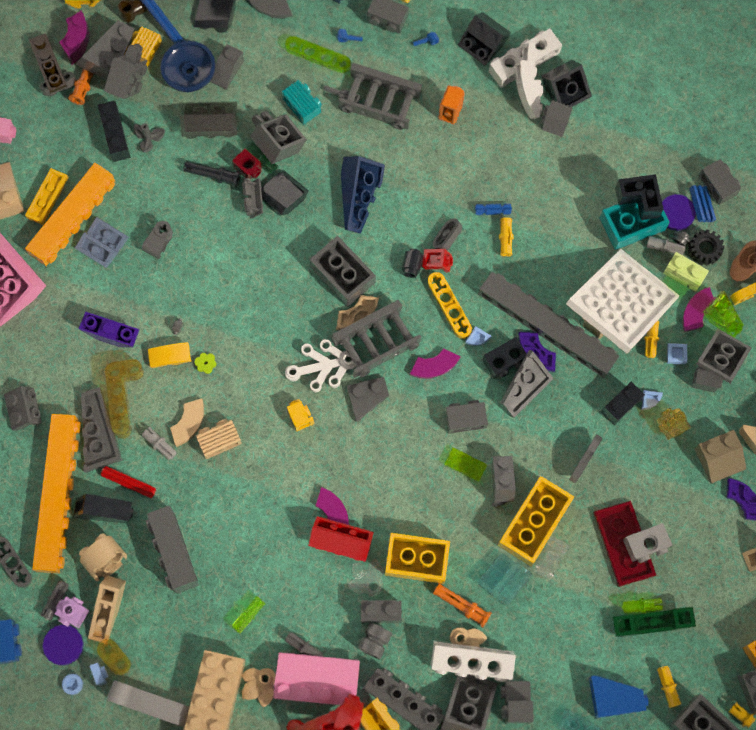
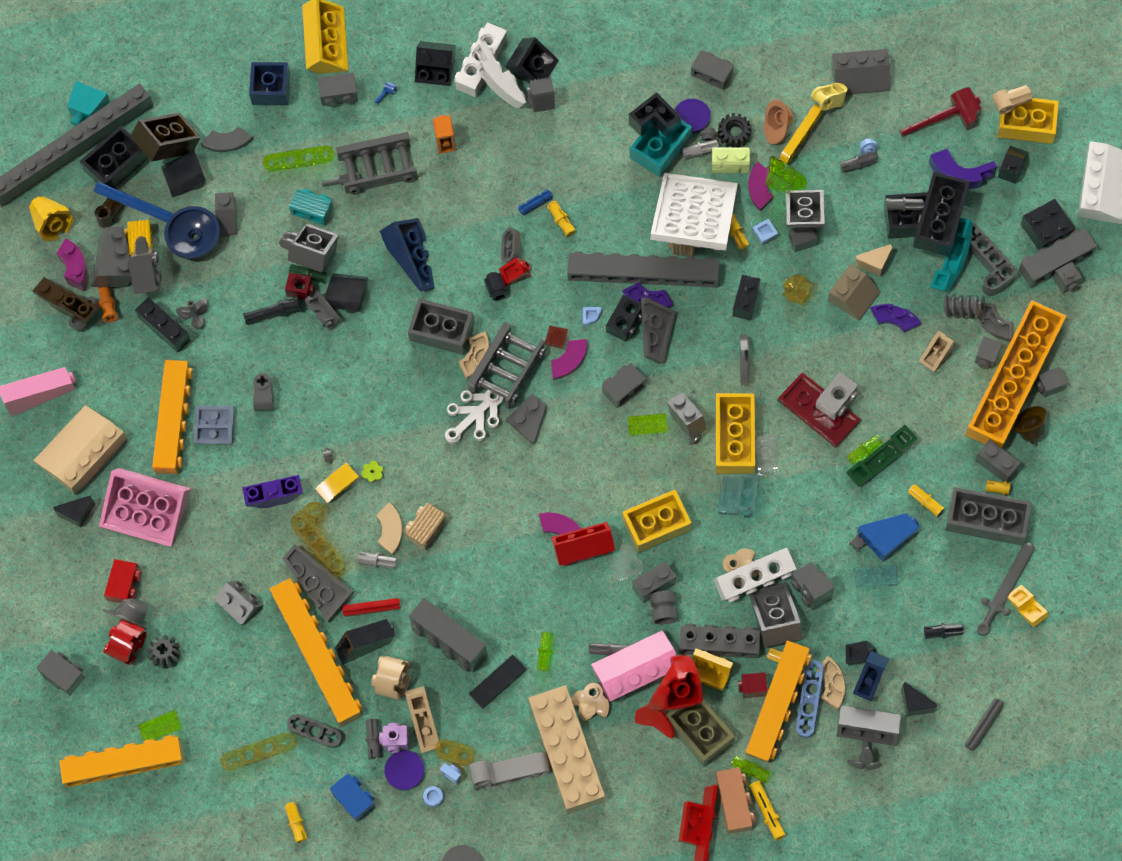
camera: 25 degrees left, 5 degrees down
(46, 196) = (139, 414): yellow plate -> none
(191, 615) = (497, 681): none -> black tile
(209, 119) = (240, 267): clear smoke slope -> none
(299, 415) = (482, 466): yellow brick -> none
(343, 37) = (310, 131): blue hand -> none
(436, 339) = (556, 337): none -> clear red plate
(451, 304) = (549, 303): yellow beam -> none
(470, 609) = (727, 537): orange pin -> none
(583, 687) = (857, 543): none -> dark grey piece
(650, 399) = (767, 281): light blue tile -> none
(702, 203) = (709, 96): blue tile -> none

